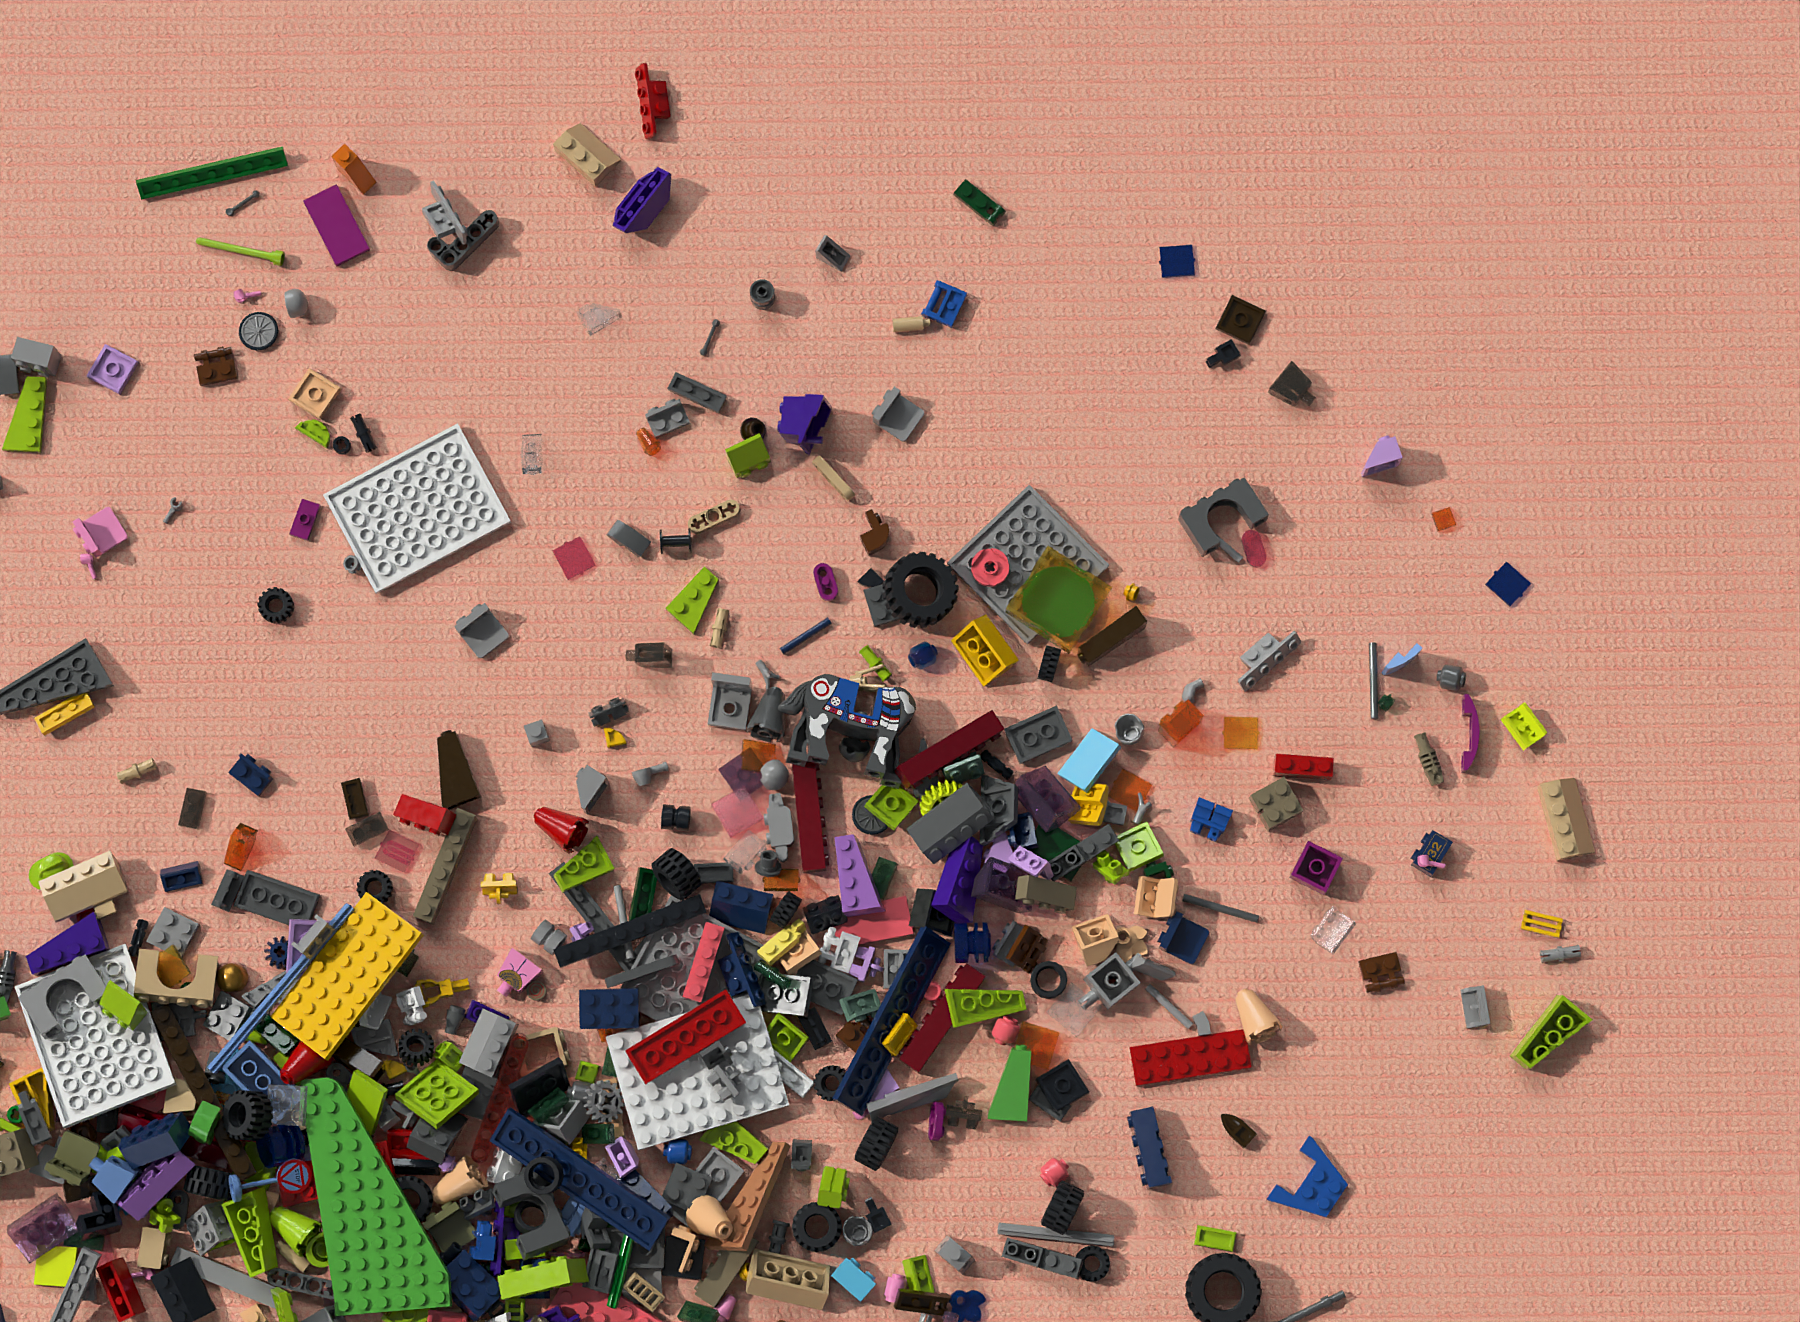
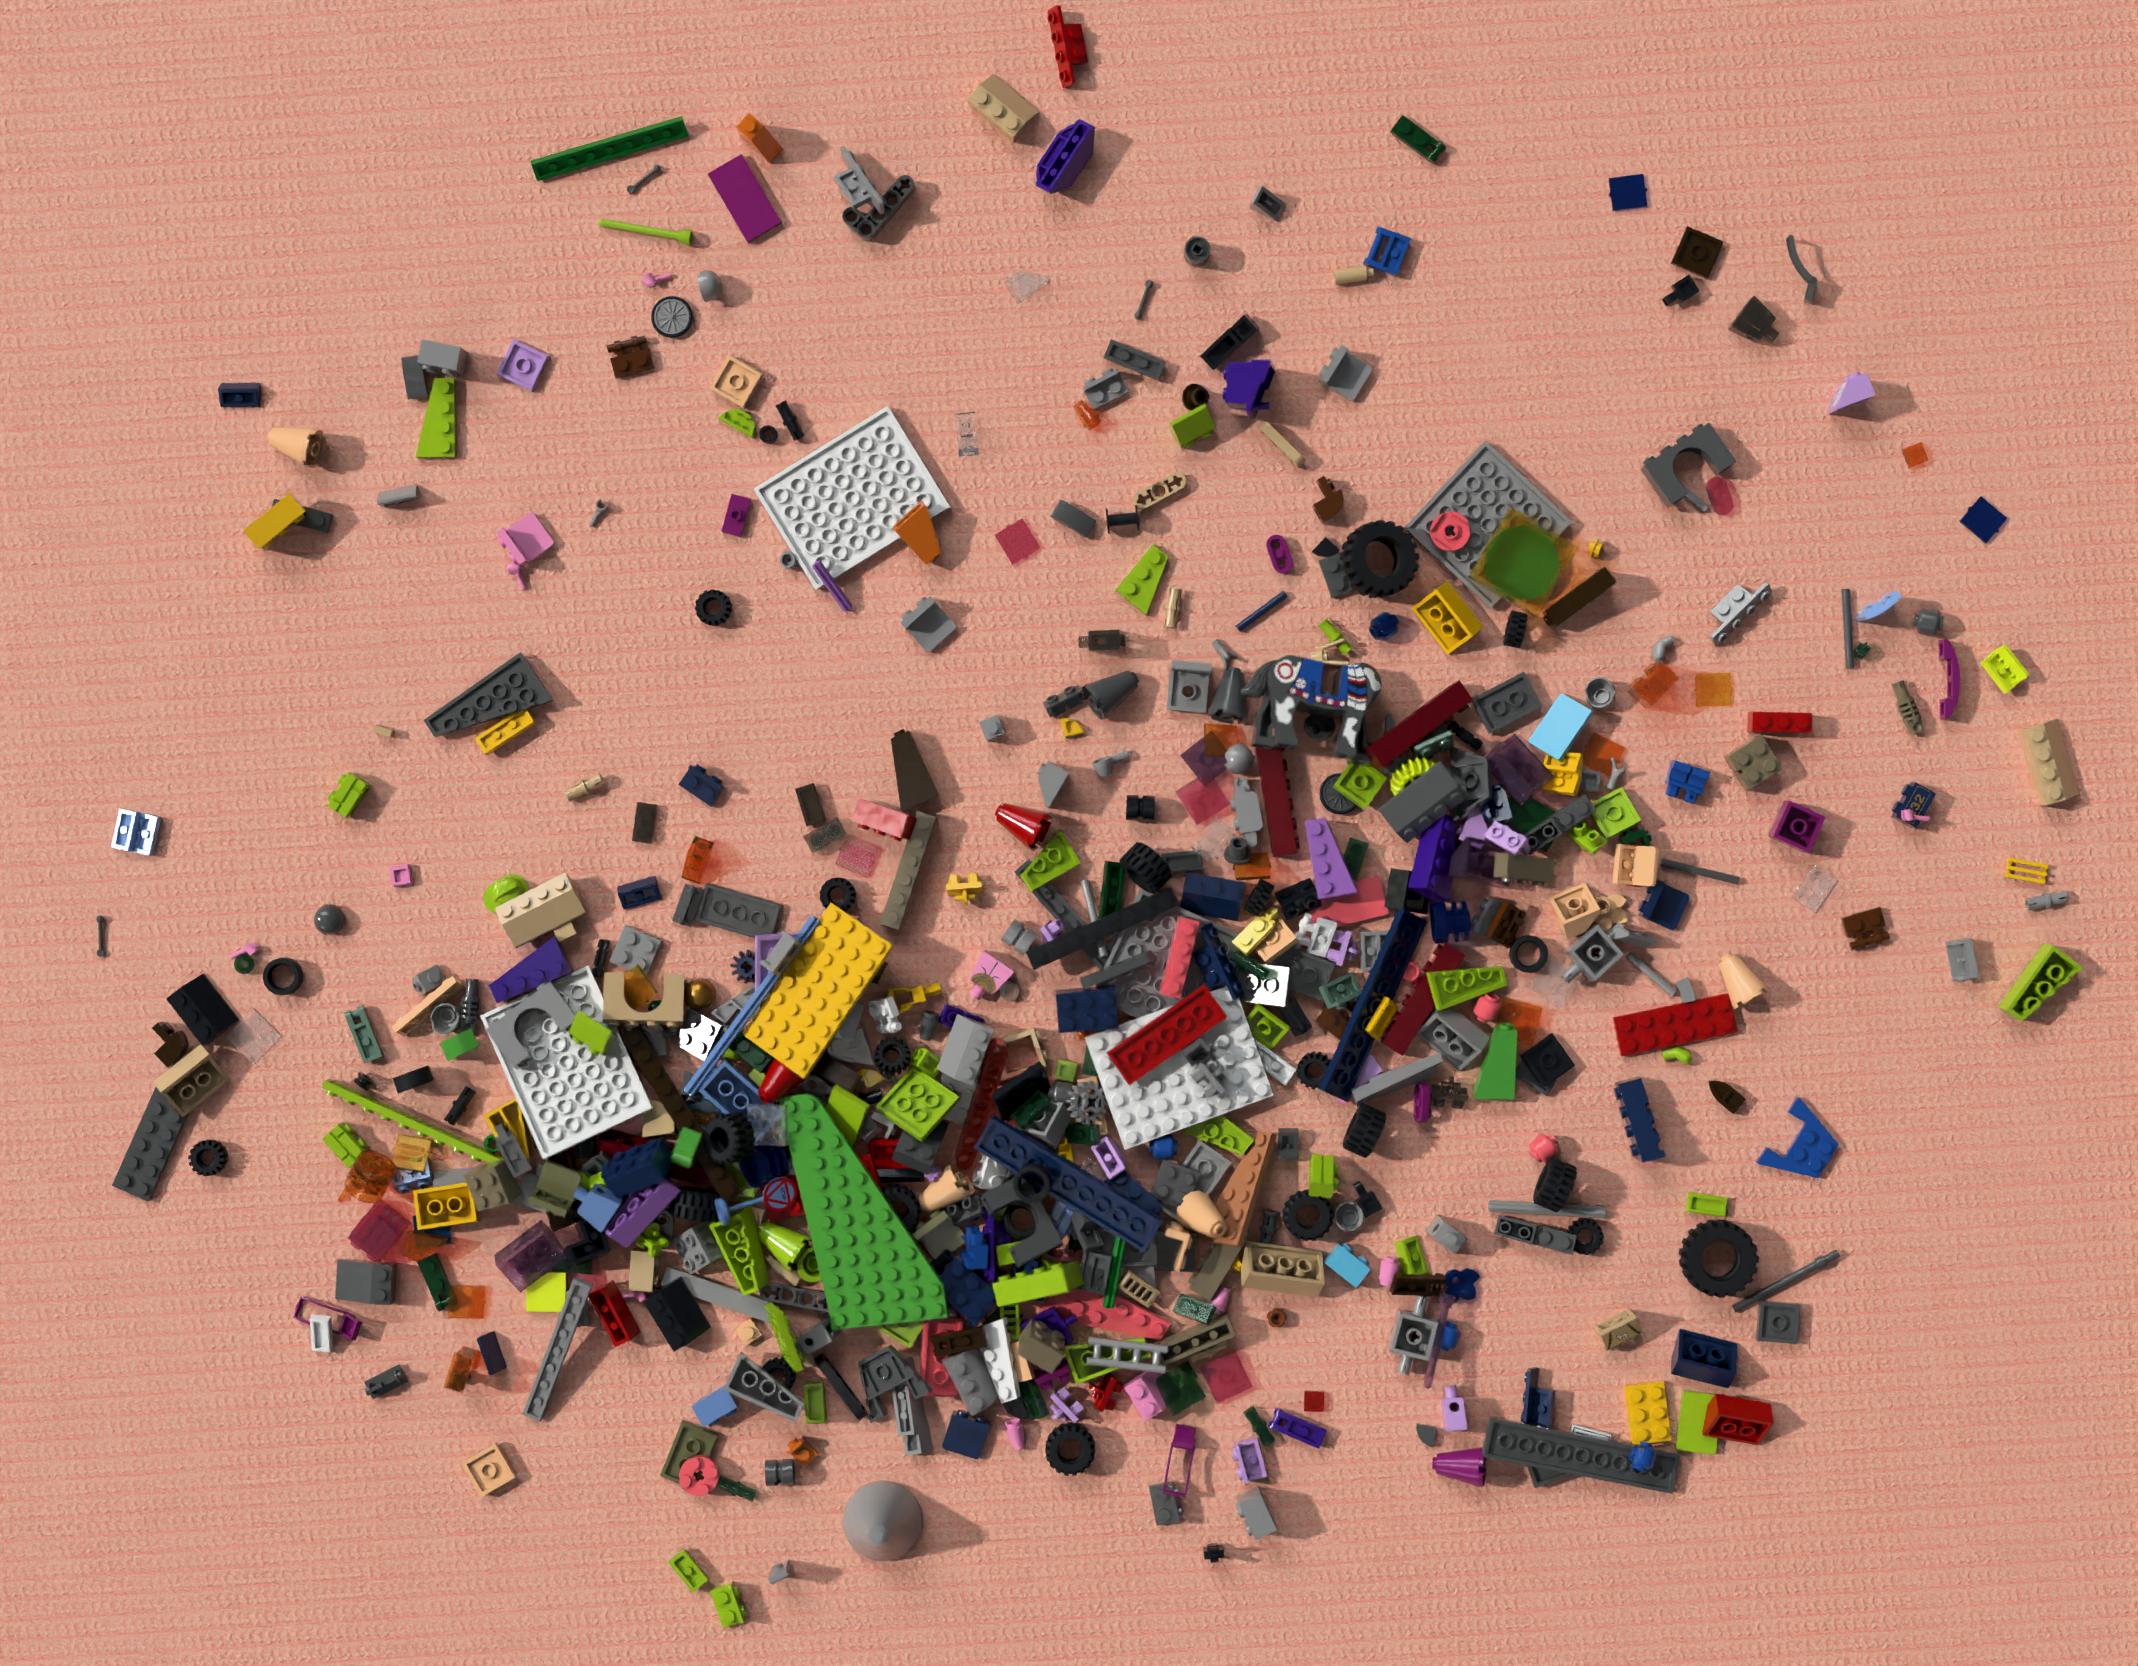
camera: 10 degrees left, 10 degrees up
(391, 589) = (832, 586): none -> medium lavender axle
(478, 544) = (919, 533): none -> orange slope
(652, 704) = (1109, 692): none -> dark grey cone
(789, 380) = (1230, 341): none -> black slope
(969, 1056) = (1453, 1036): none -> light grey slope
(1193, 1086) = (1678, 1053): none -> lime arm
(1346, 348) = (1811, 280): none -> dark grey piece

